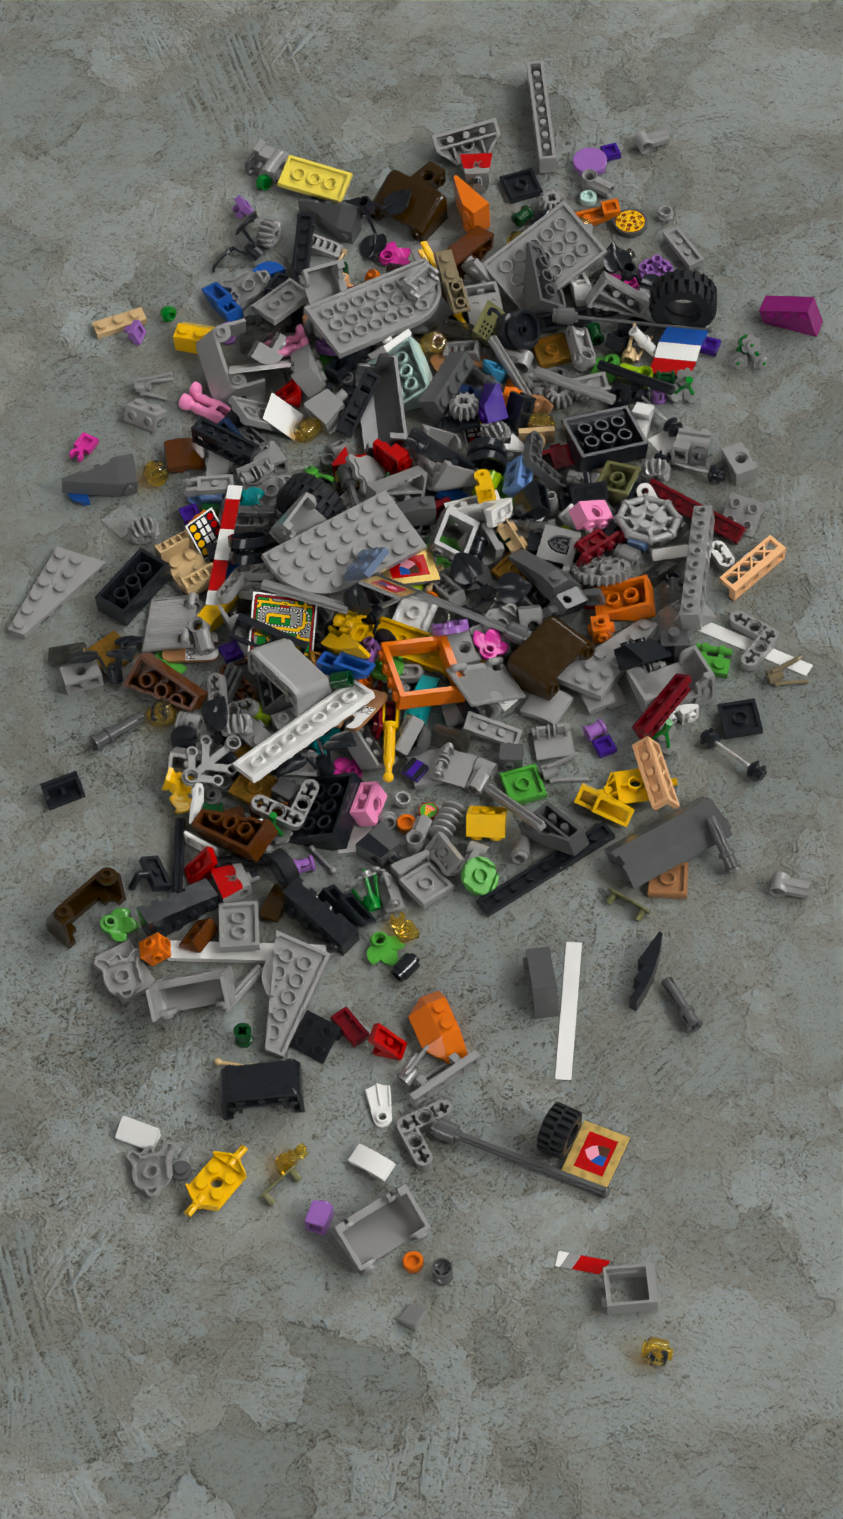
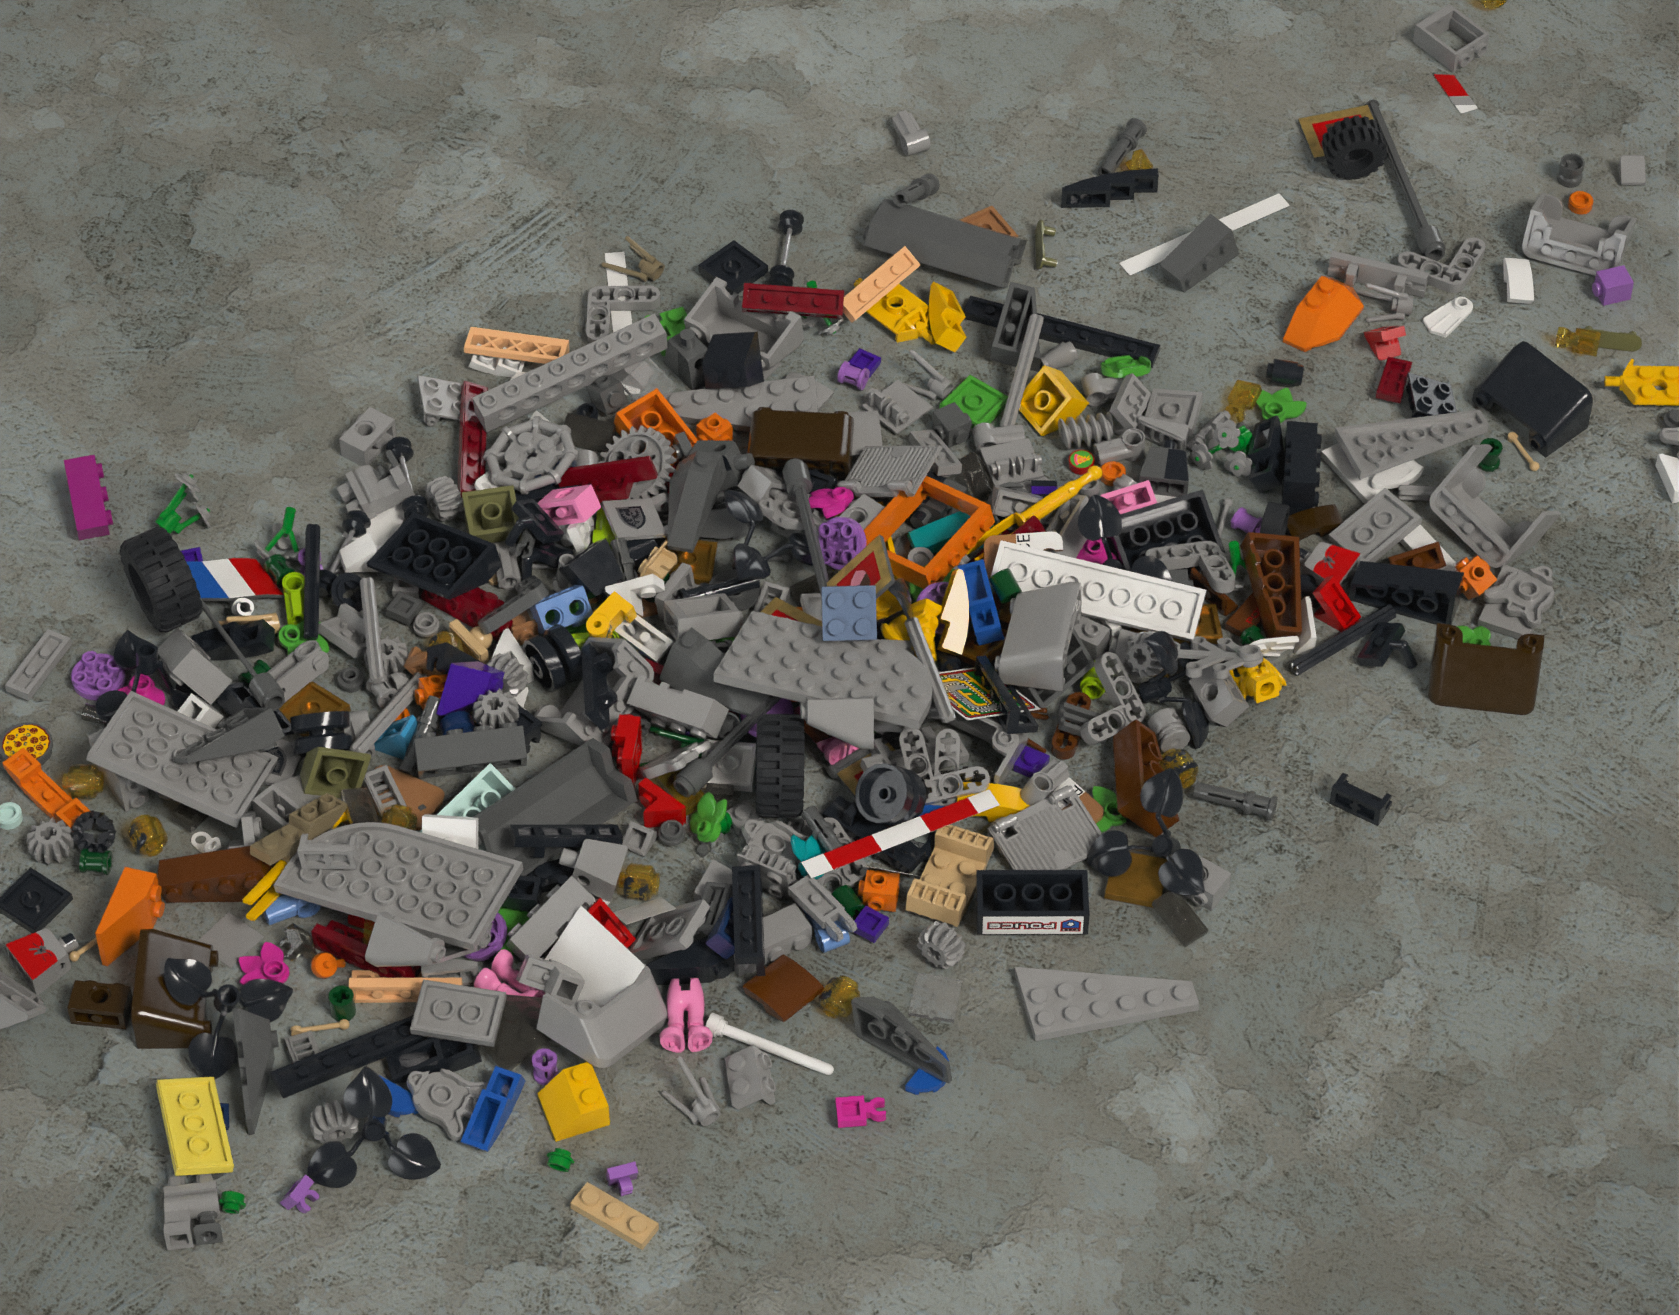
camera: 130 degrees left, 5 degrees down
(187, 417) = (720, 1027): none -> white piece
(653, 1002) = (1138, 161): none -> clear yellow tile

